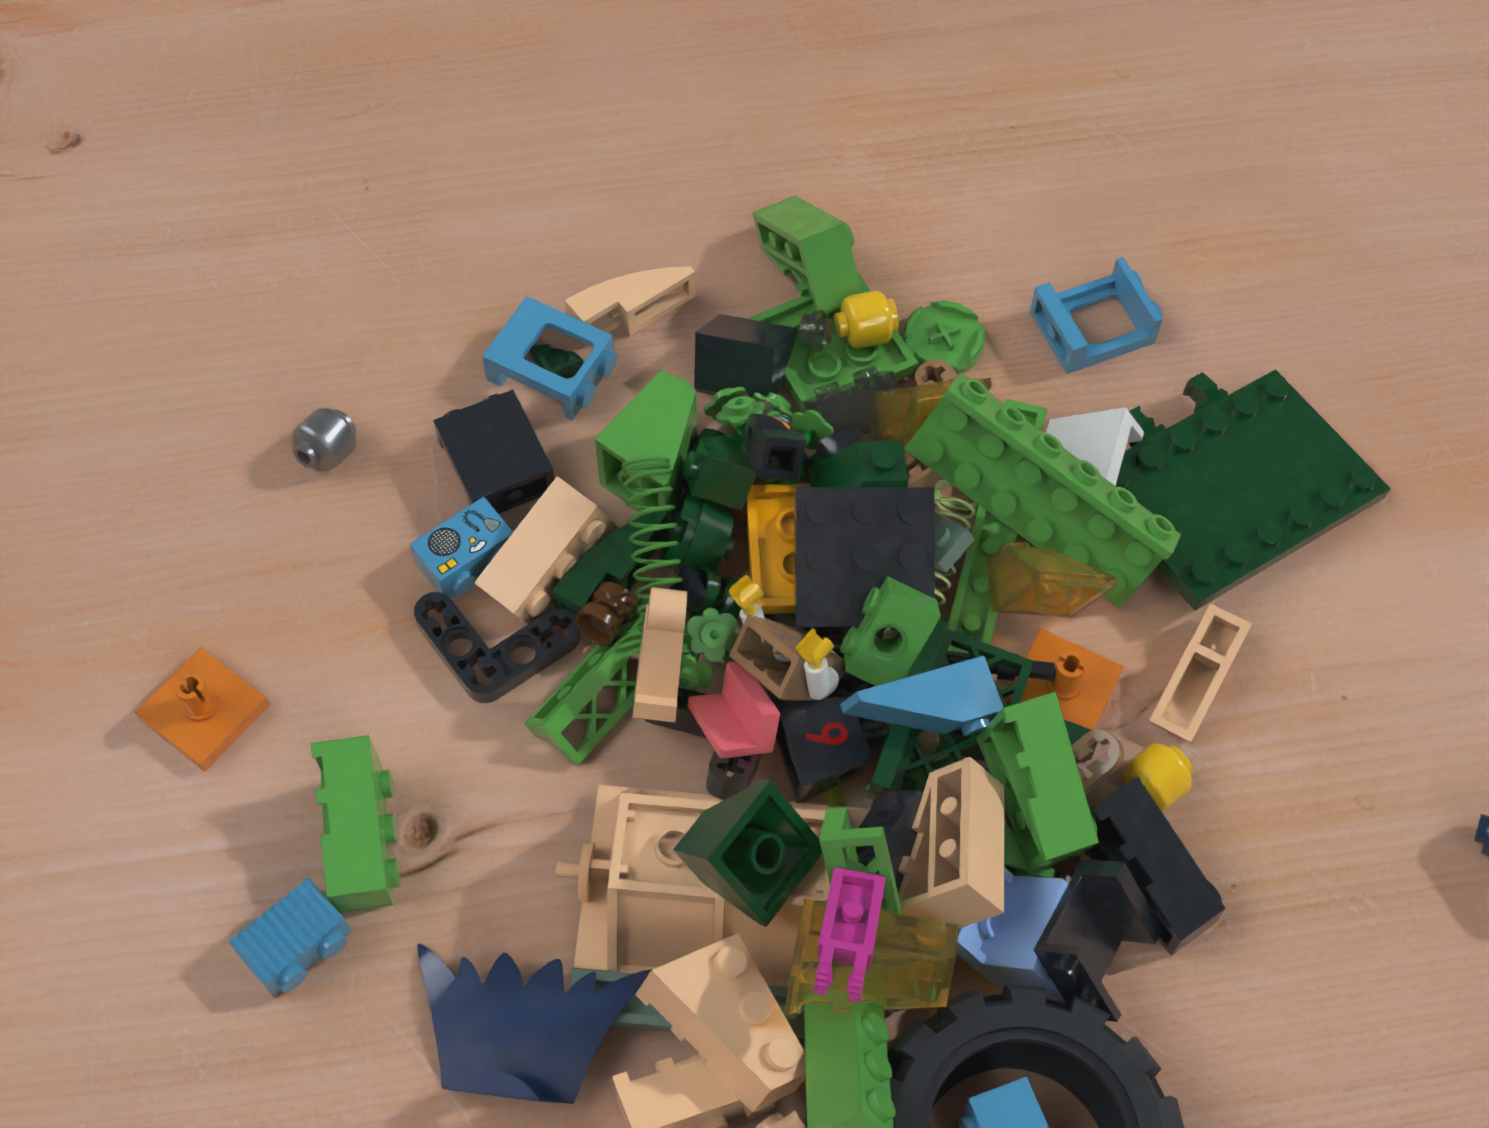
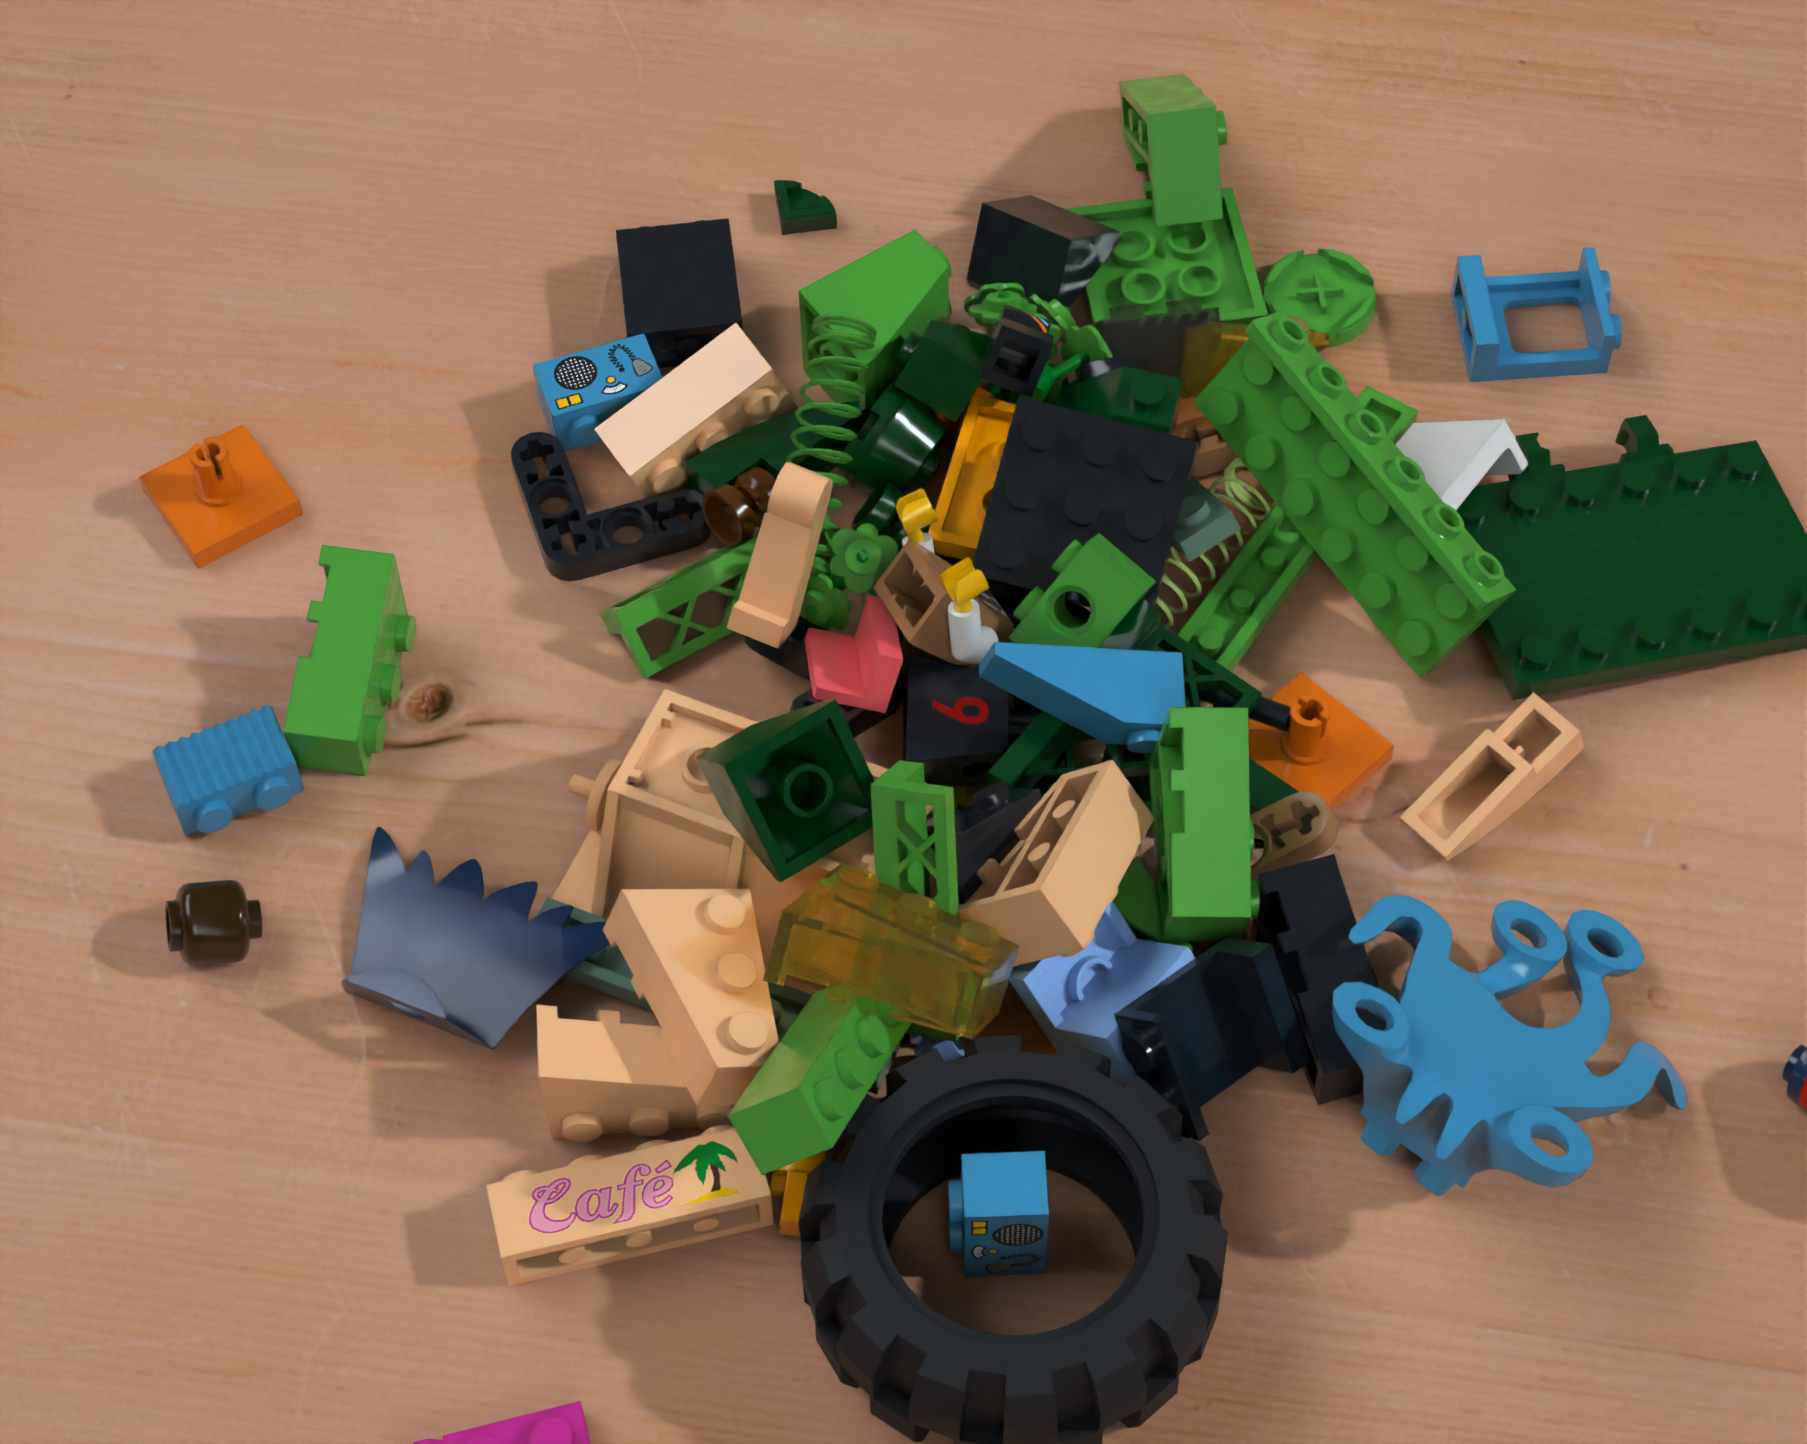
camera: 20 degrees right, 5 degrees down
(323, 1067) = (212, 922): none -> dark brown head
(324, 439) = (477, 224): flat silver head -> none
(507, 354) = (745, 174): dark azure window -> none
(633, 299) = (921, 154): light nougat slope -> none
(694, 586) = (858, 502): black tile -> none
(815, 330) = (1141, 240): clear smoke plate -> none
(849, 928) = (866, 893): dark pink hinge -> none
(867, 319) = (1215, 242): yellow head -> none
(1043, 582) = (1318, 612): clear yellow slope -> none
(1163, 772) = (1383, 872): yellow head -> none
(1290, 918) = (1467, 1077): none -> dark azure hips

